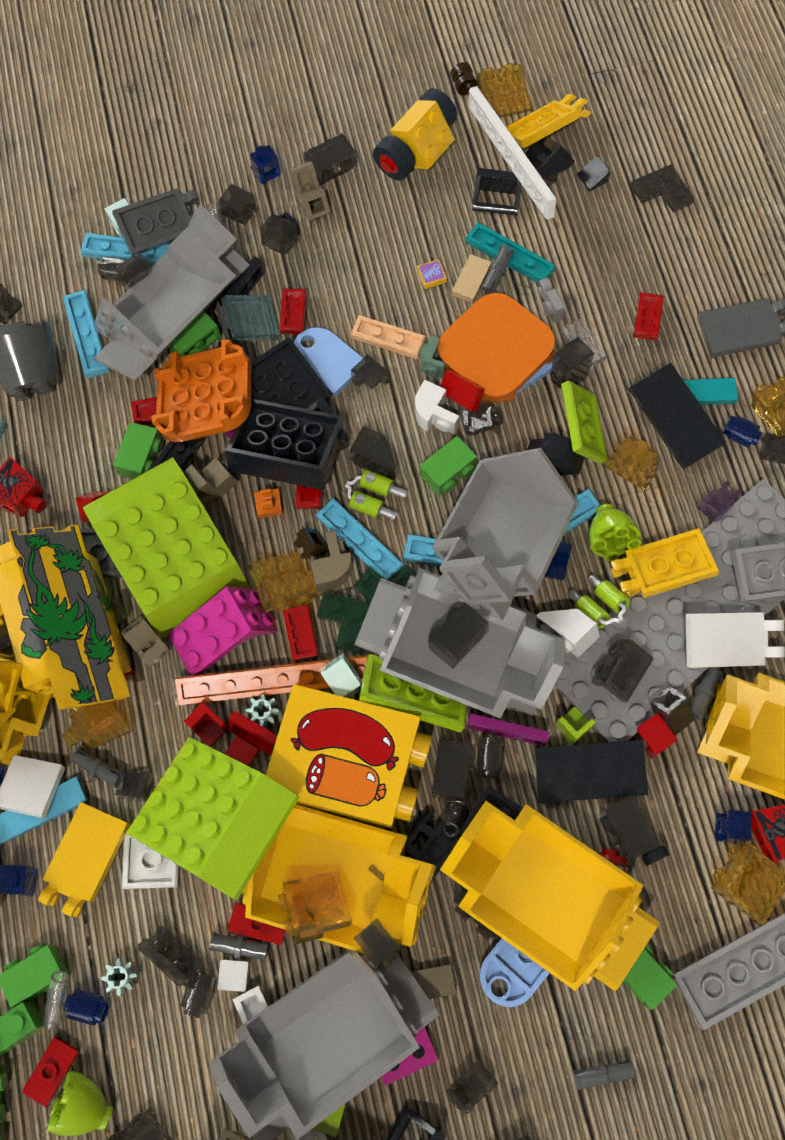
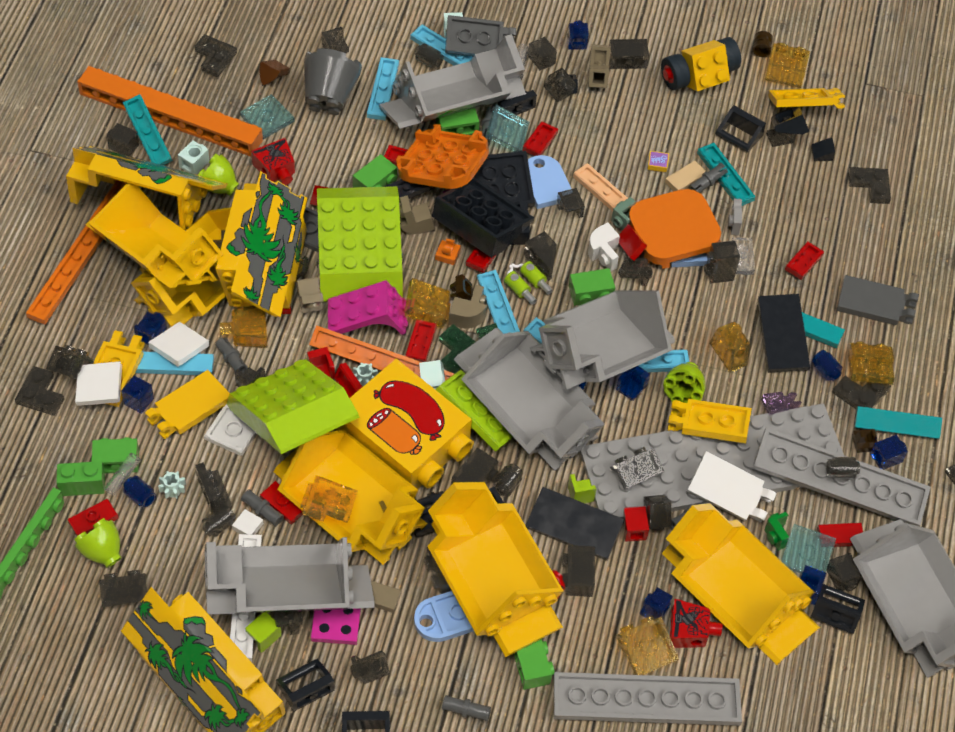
camera: 20 degrees right, 15 degrees down
(132, 270) = (439, 60): clear smoke brick -> none
(378, 944) = (359, 530): clear smoke brick -> none
(457, 634) = (530, 385): clear smoke brick -> none
(508, 730) = (530, 468): magenta tile -> none
(512, 153) = (764, 105): white tile -> none
(560, 453) = (679, 315): black brick -> none
(572, 626) = (617, 428): white slope -> none
(584, 422) = (709, 303): lime tile -> none
(608, 594) = (640, 427): lime piece -> none
(655, 855) = (588, 596): black tile -> none

